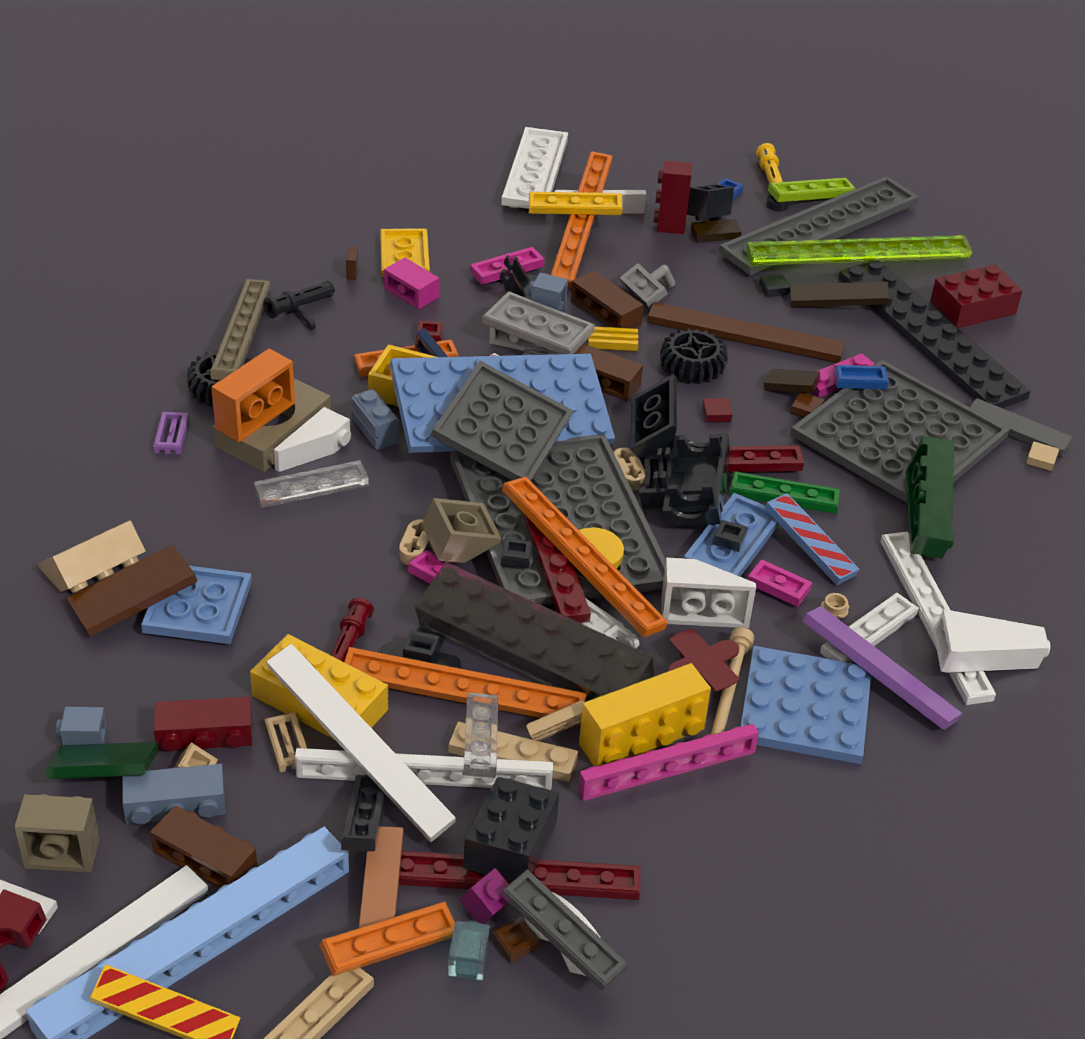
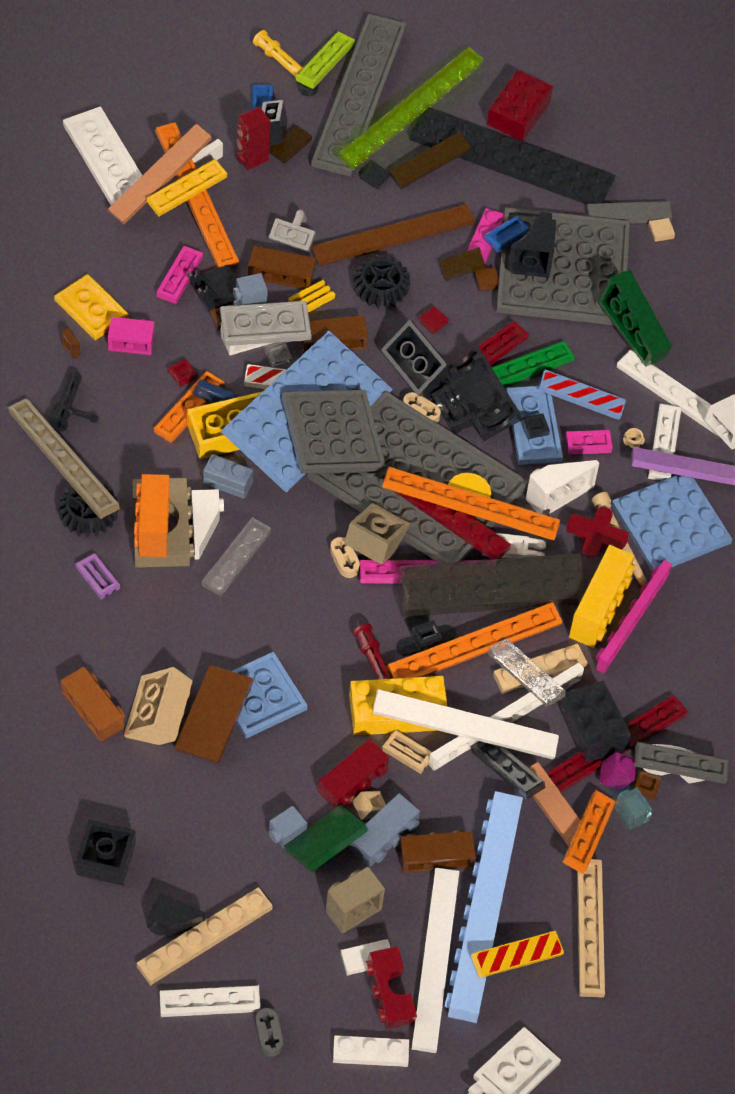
camera: 40 degrees left, 15 degrees up
(37, 519) = (92, 703): none -> dark orange brick
(516, 553) = (425, 527): black tile -> none
(556, 722) = (555, 632): tan tile -> none
(562, 182) = (160, 173): none -> nougat tile
(872, 392) = (535, 251): none -> black hips

